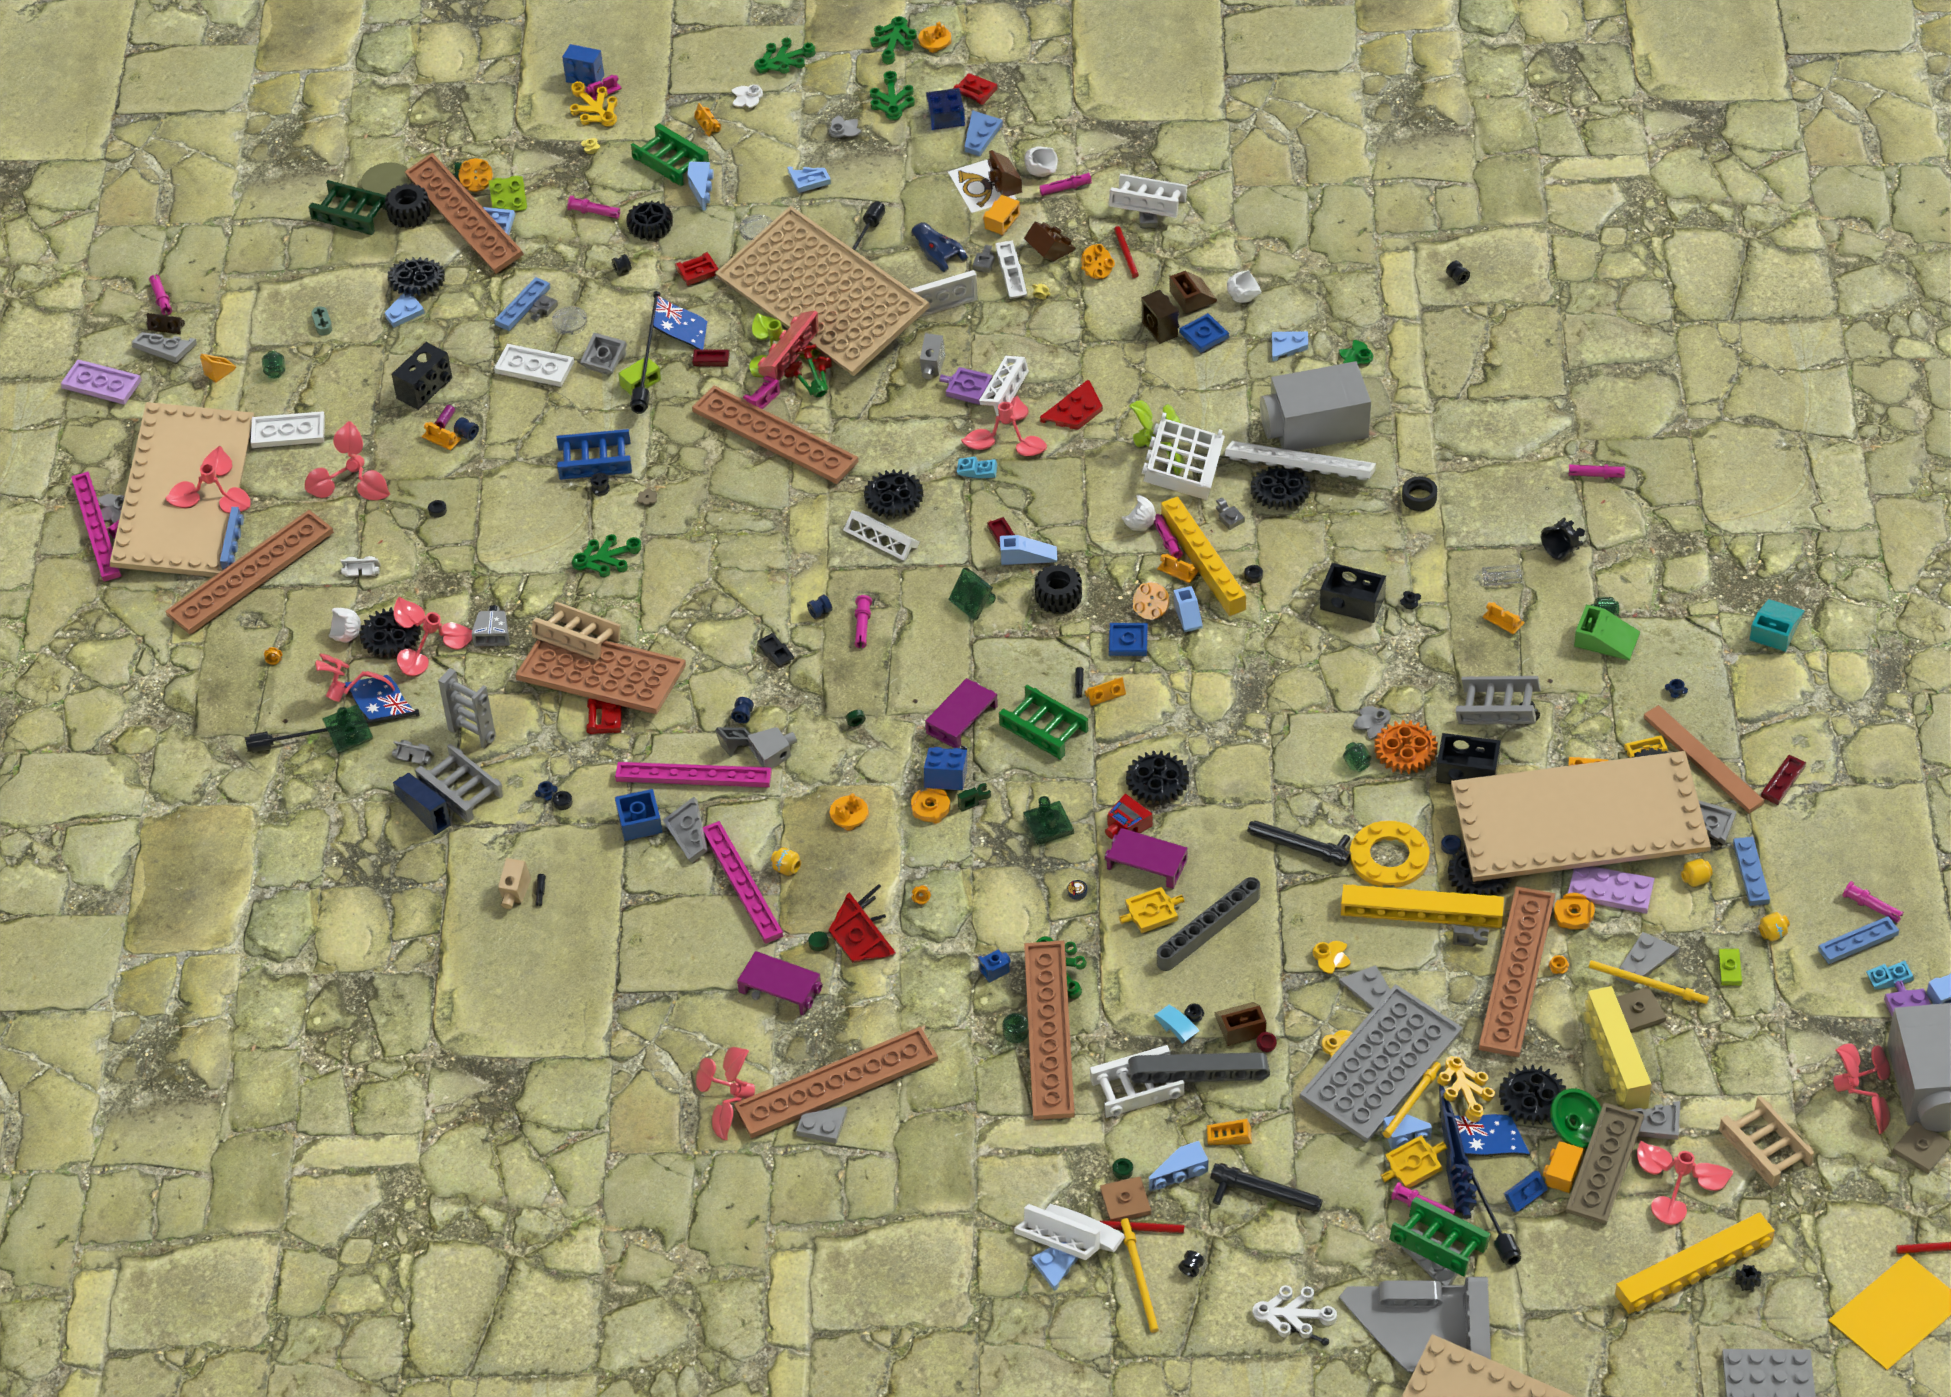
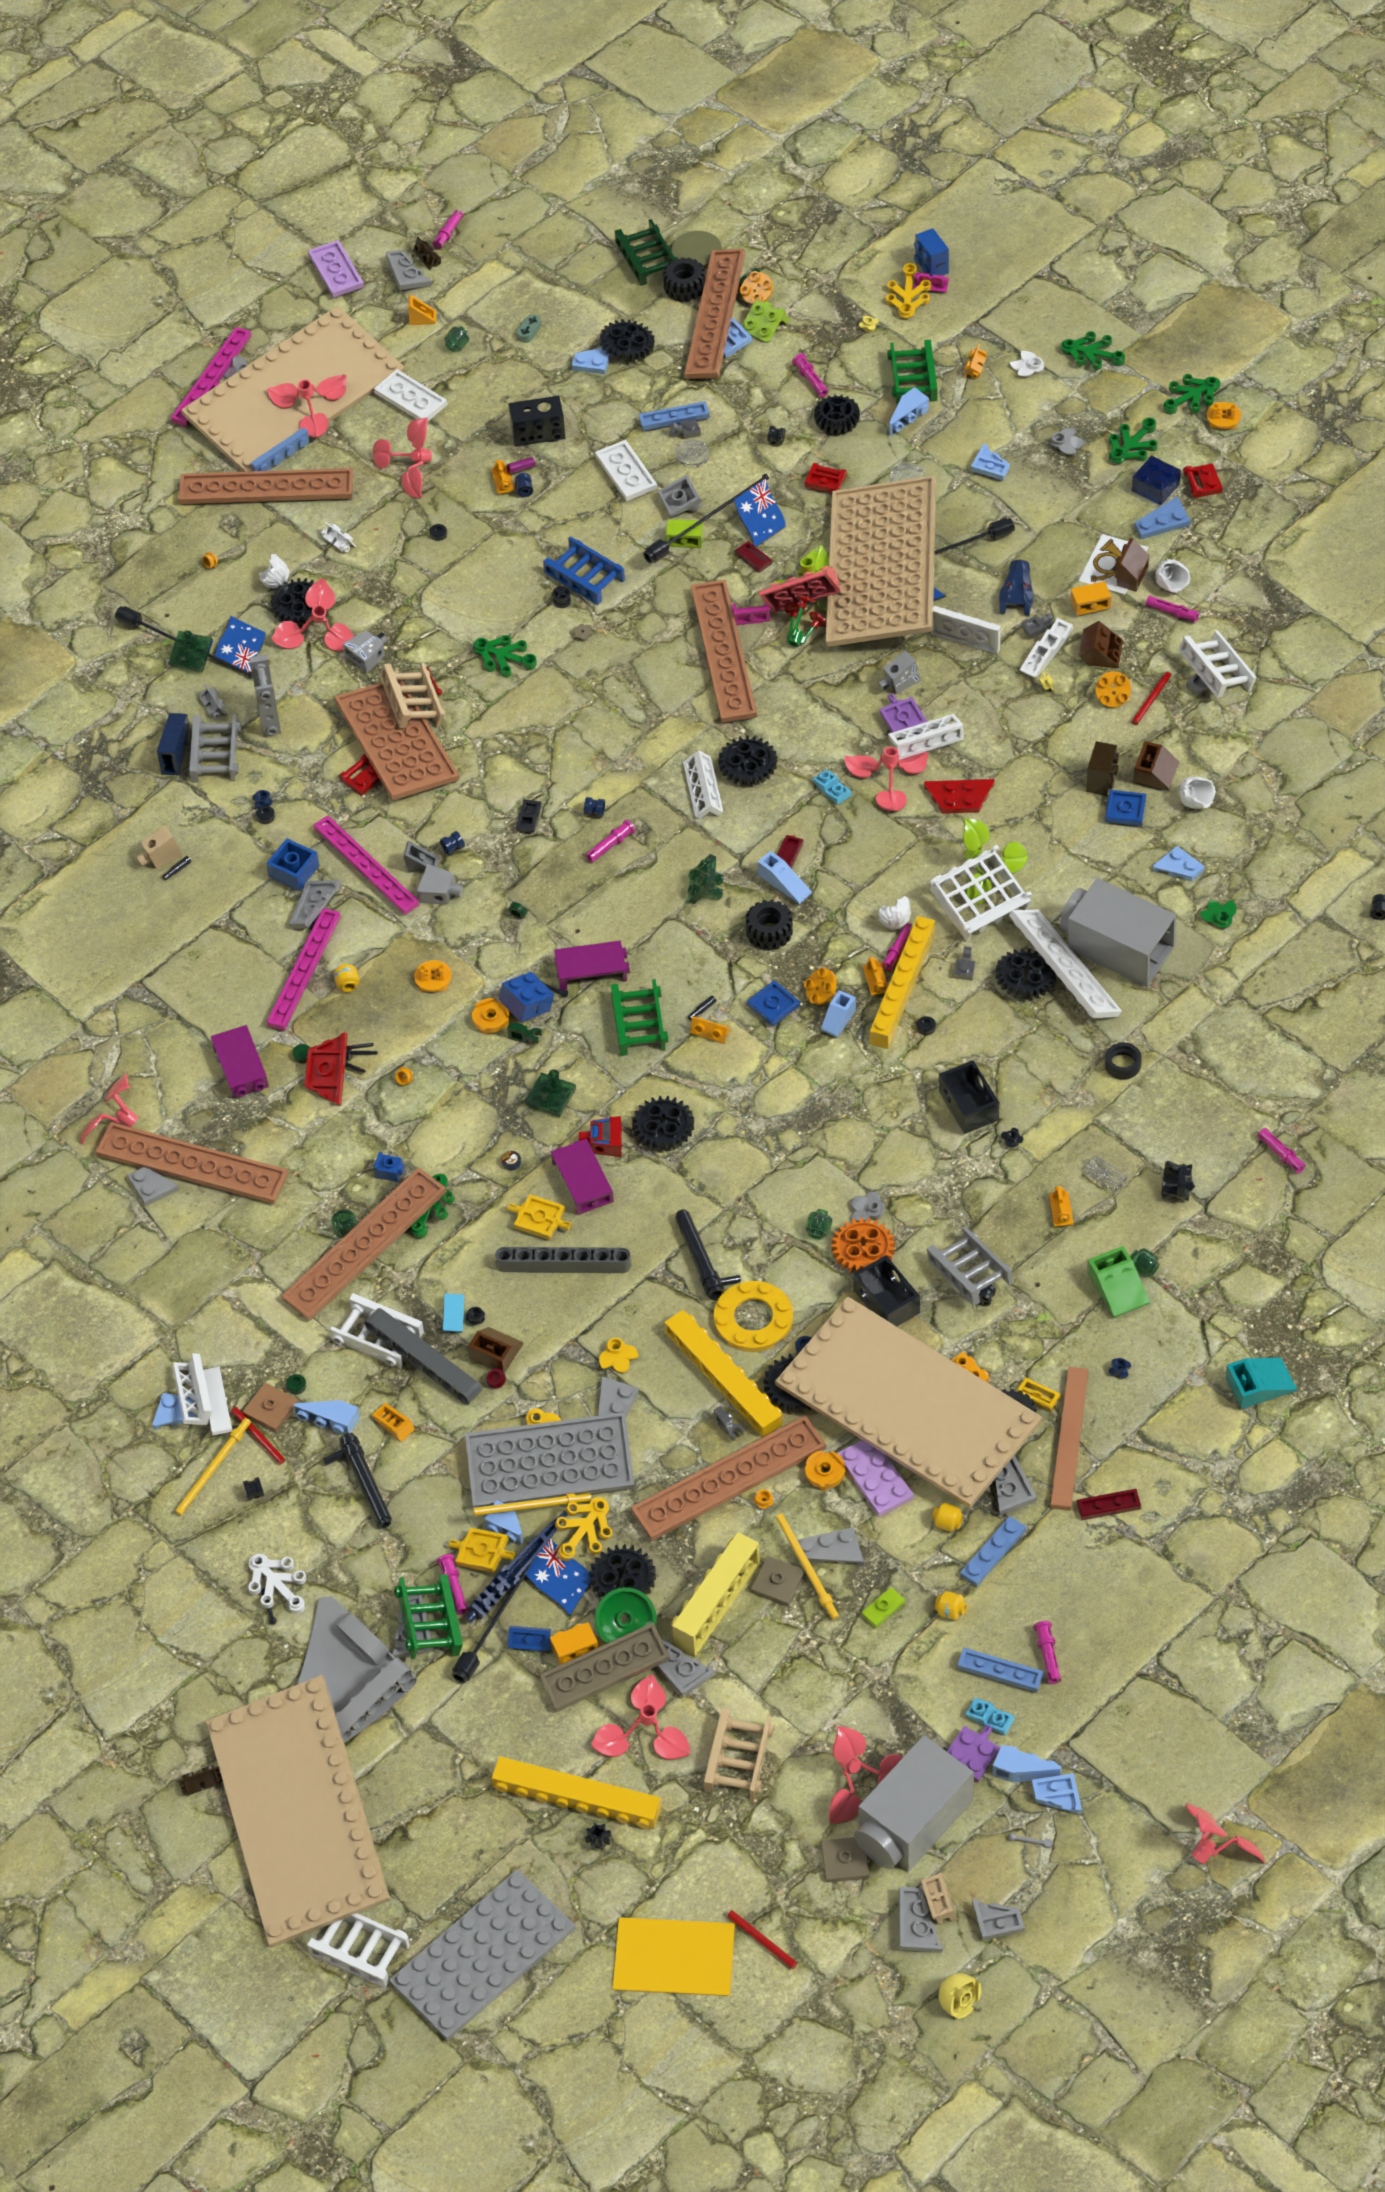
camera: 45 degrees right, 5 degrees up
(337, 687) = (217, 616): coral plant -> none

